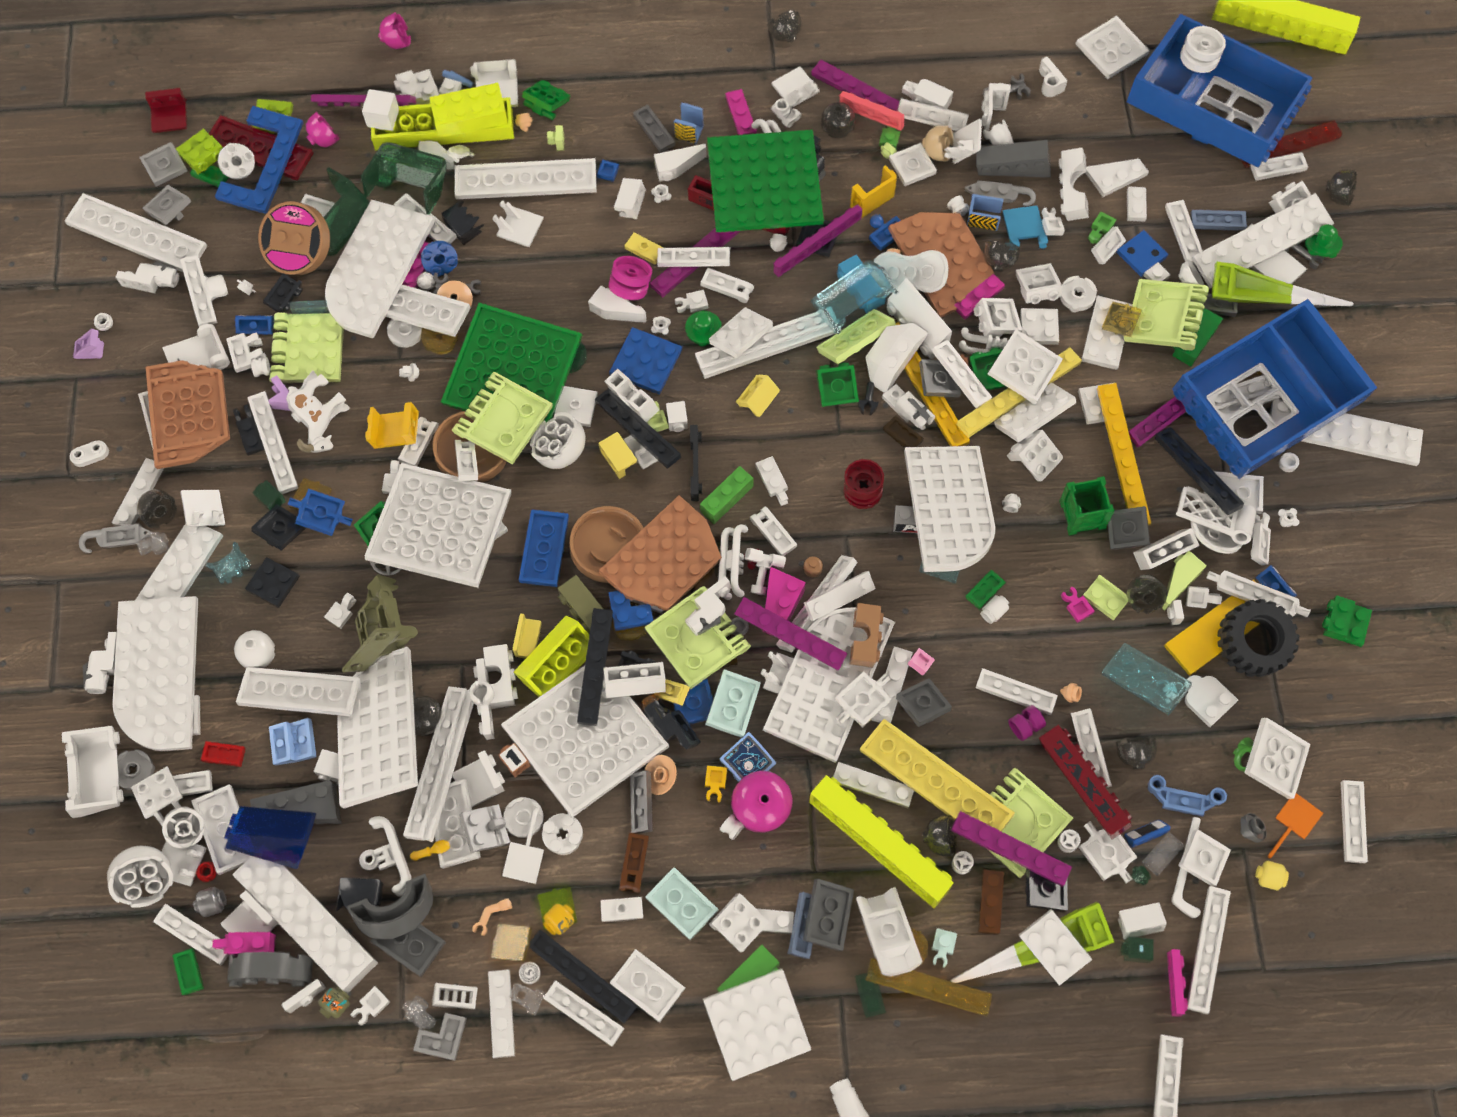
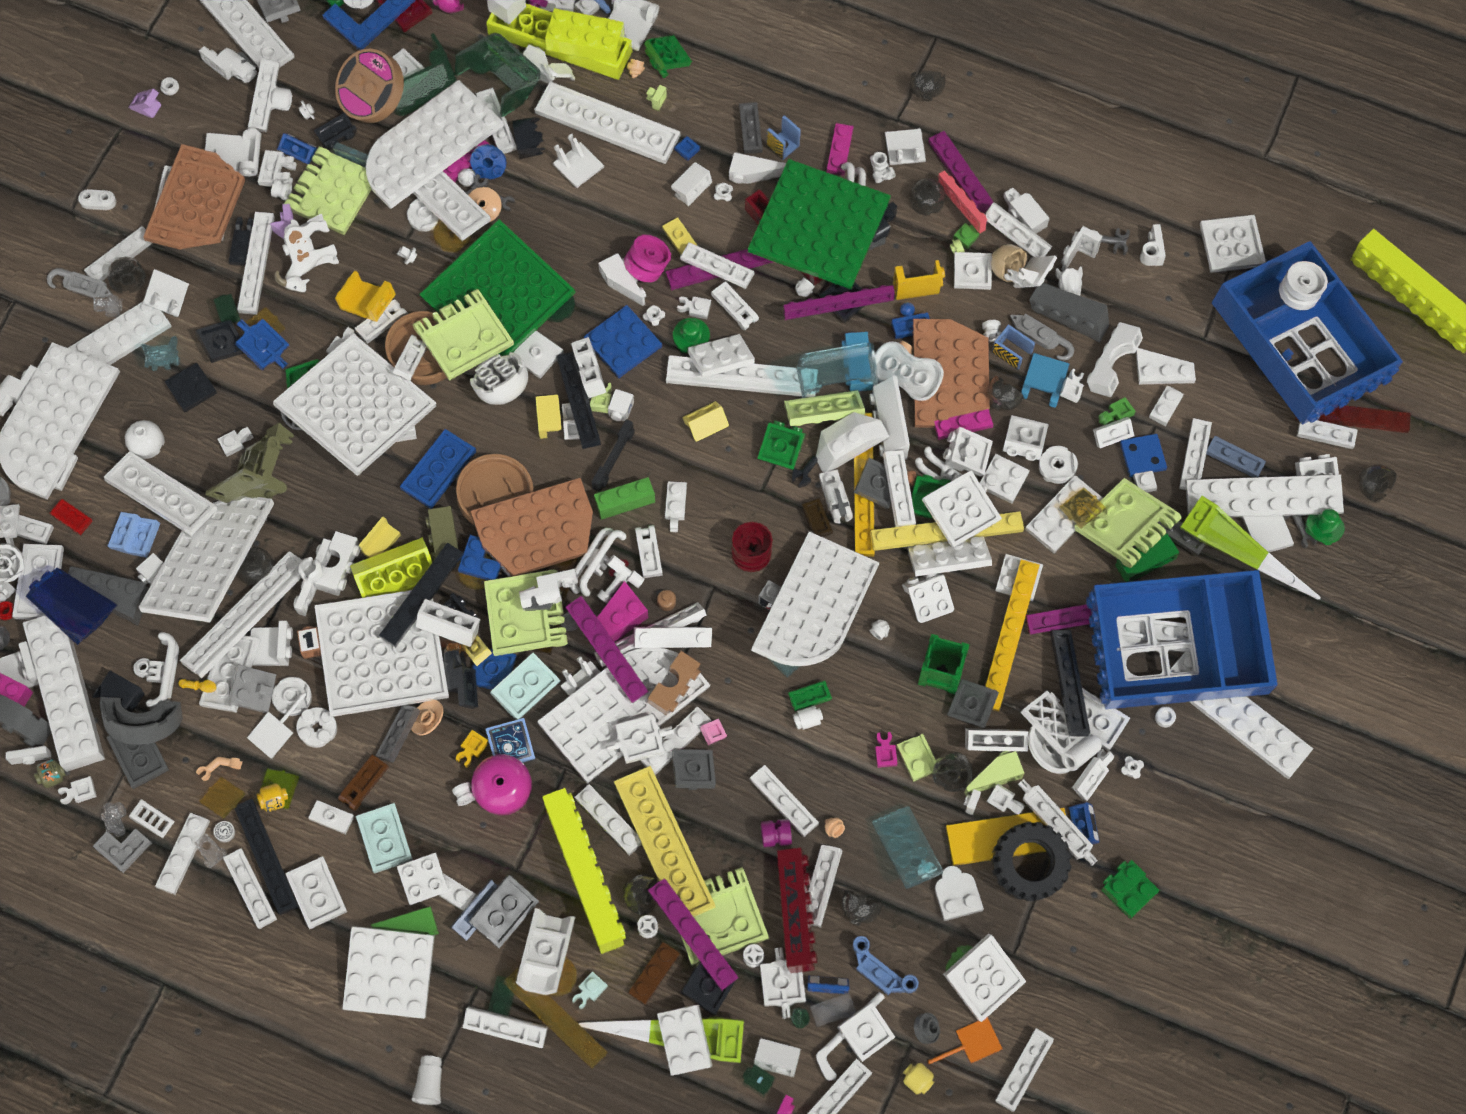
camera: 25 degrees right, 0 degrees up
(888, 1019) = (505, 1027): none -> white plate
(1190, 274) = (1175, 497): white piece -> none

